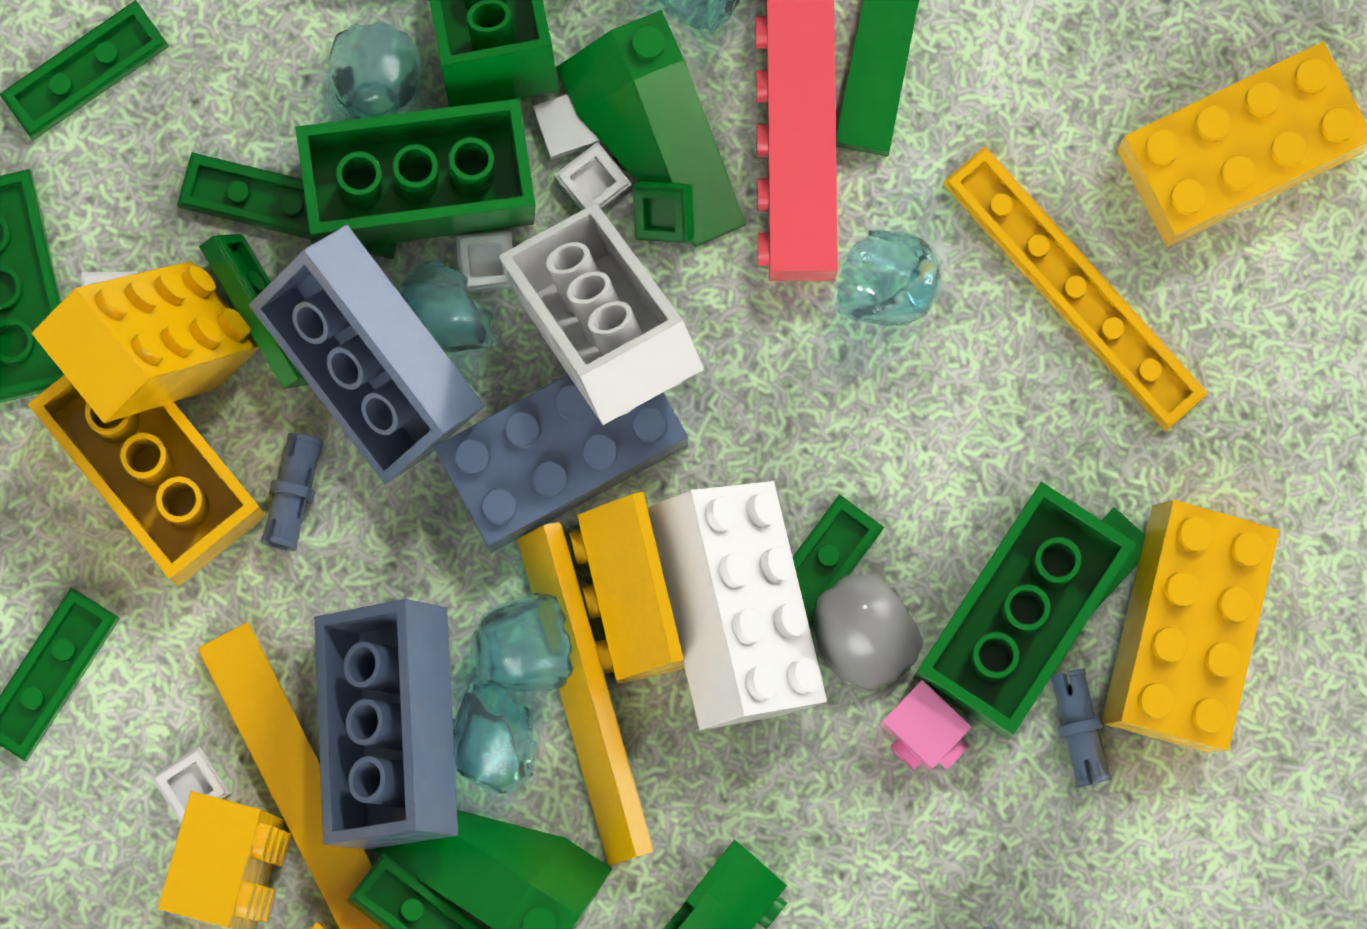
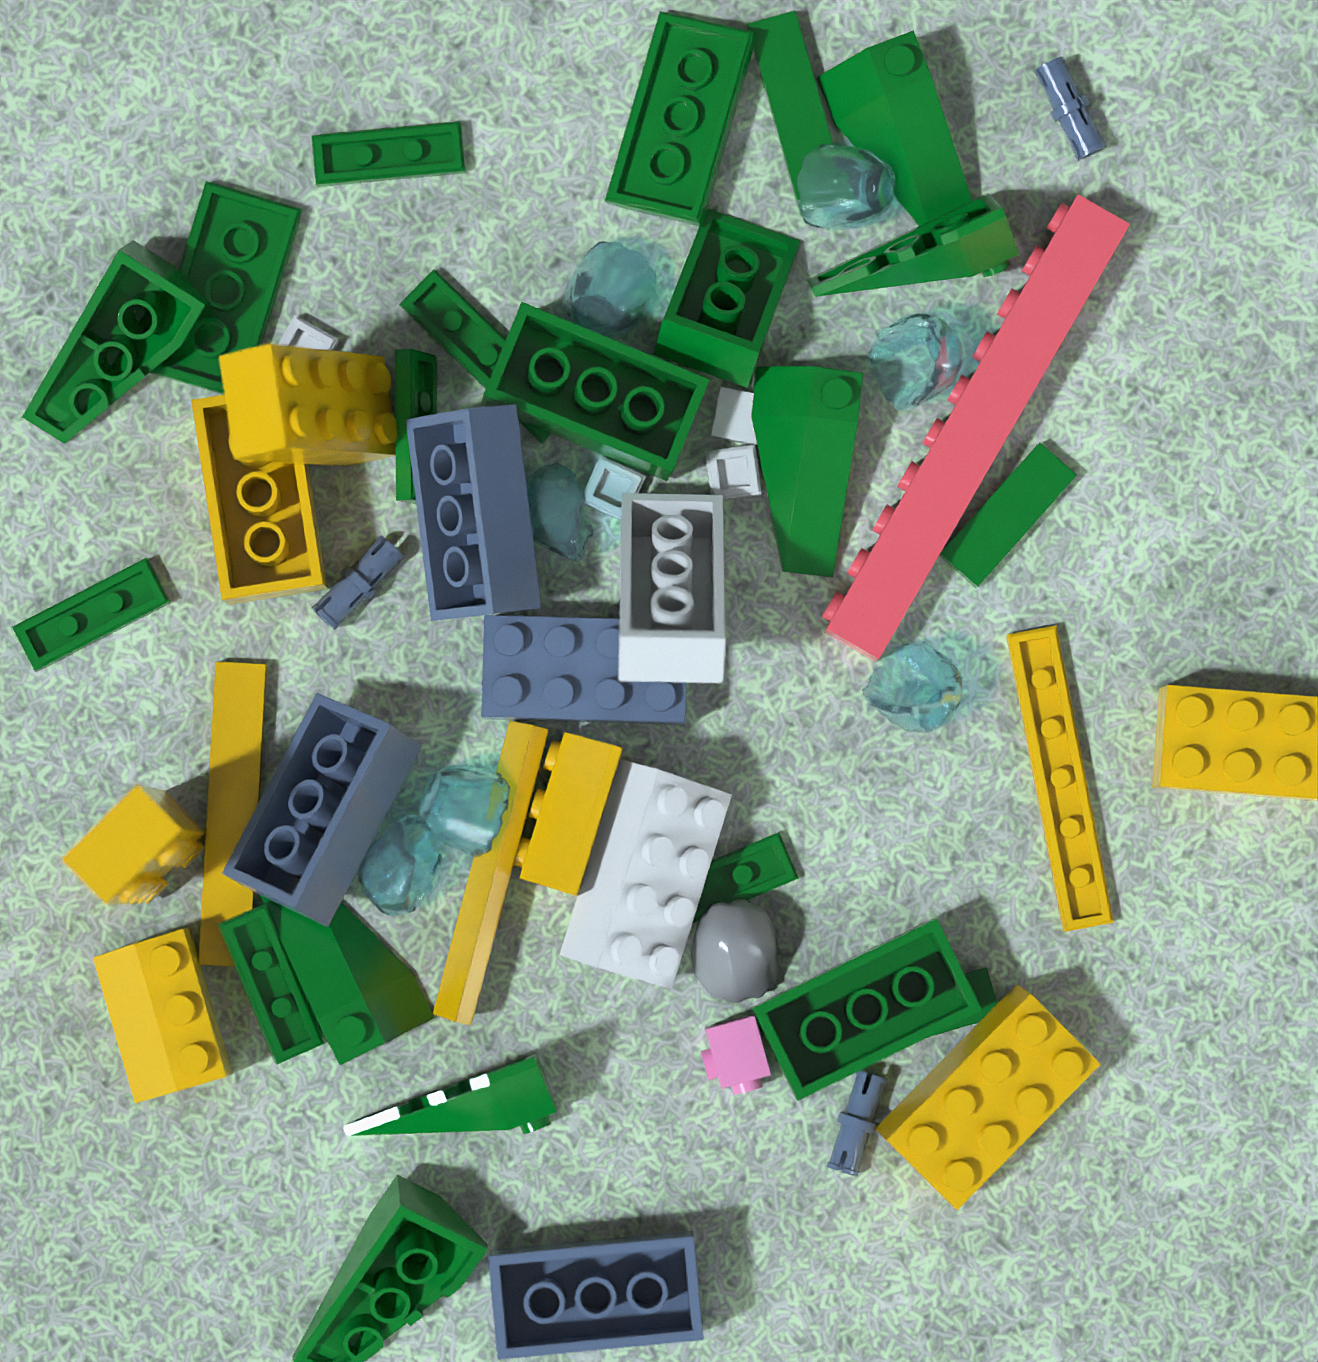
camera: 30 degrees right, 5 degrees up
(189, 773) = (151, 763): white tile -> none
(663, 211) = (772, 531): green tile -> none

